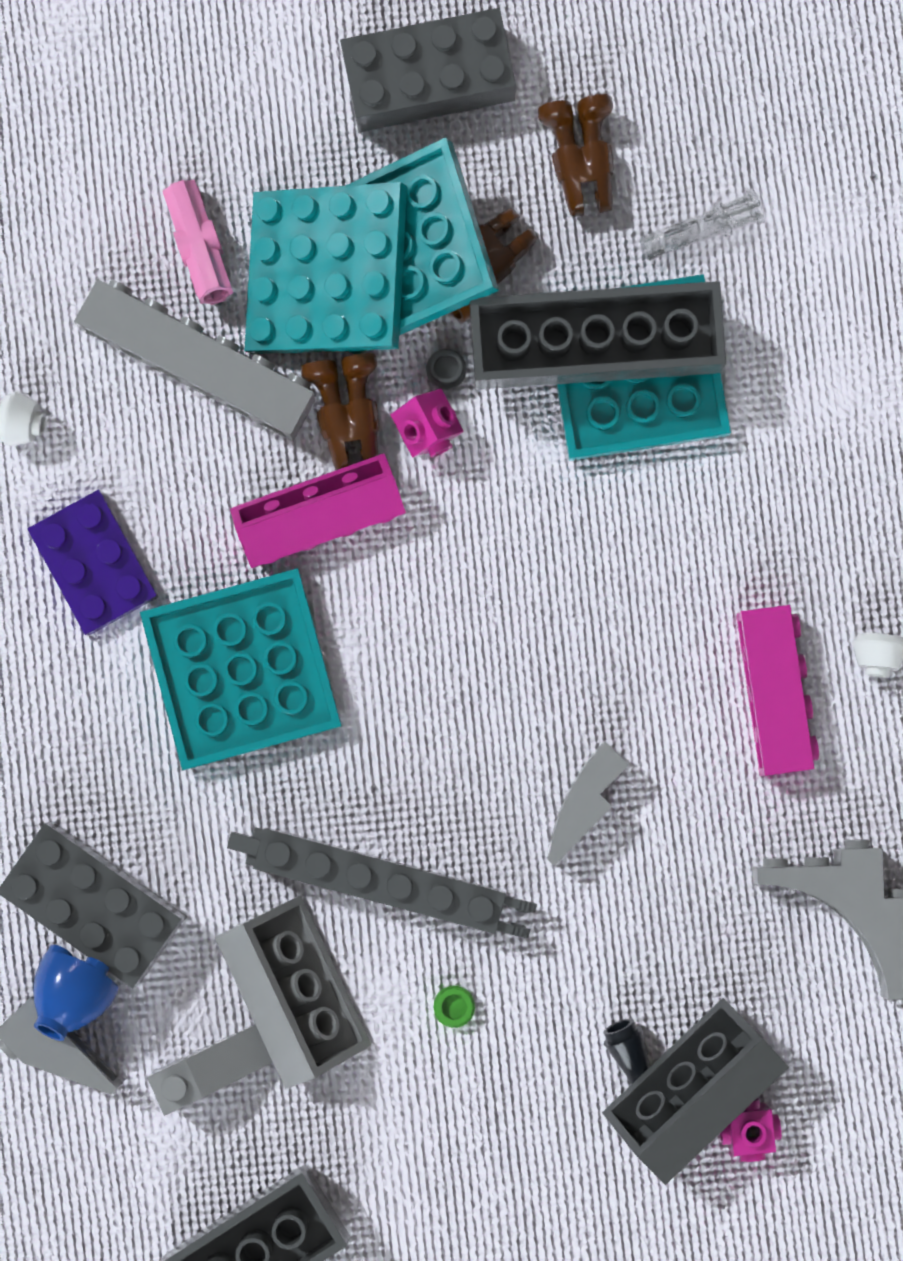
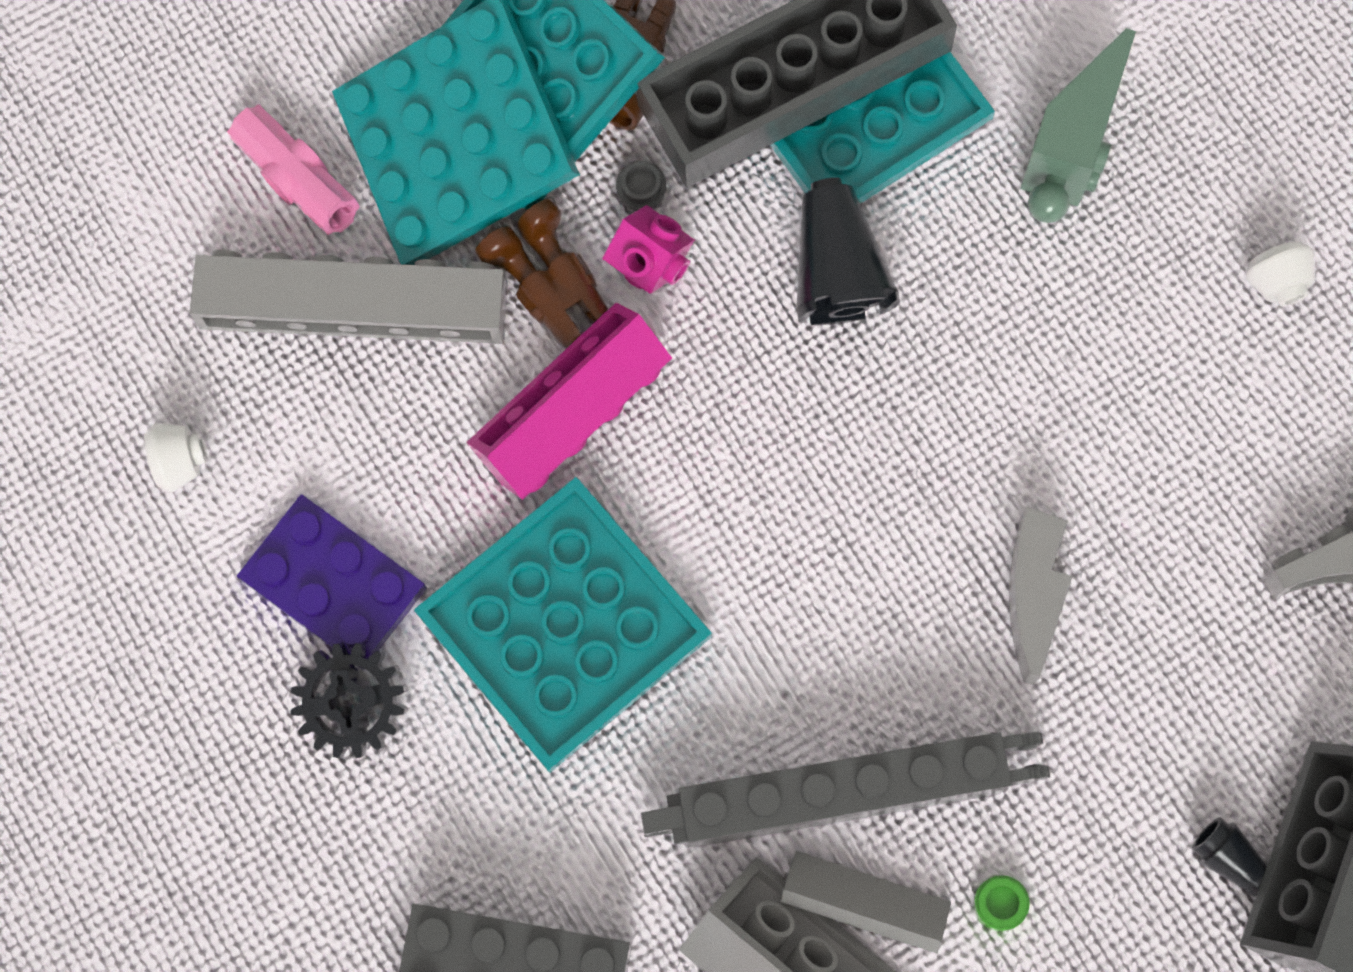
camera: 25 degrees left, 10 degrees down
(50, 654) = (343, 678): none -> black gear
(360, 963) = (866, 902): none -> light grey tile
(560, 494) = (839, 259): none -> black cone
(773, 480) = (1069, 141): none -> sand green slope
(775, 690) = (1190, 367): dark pink brick -> none

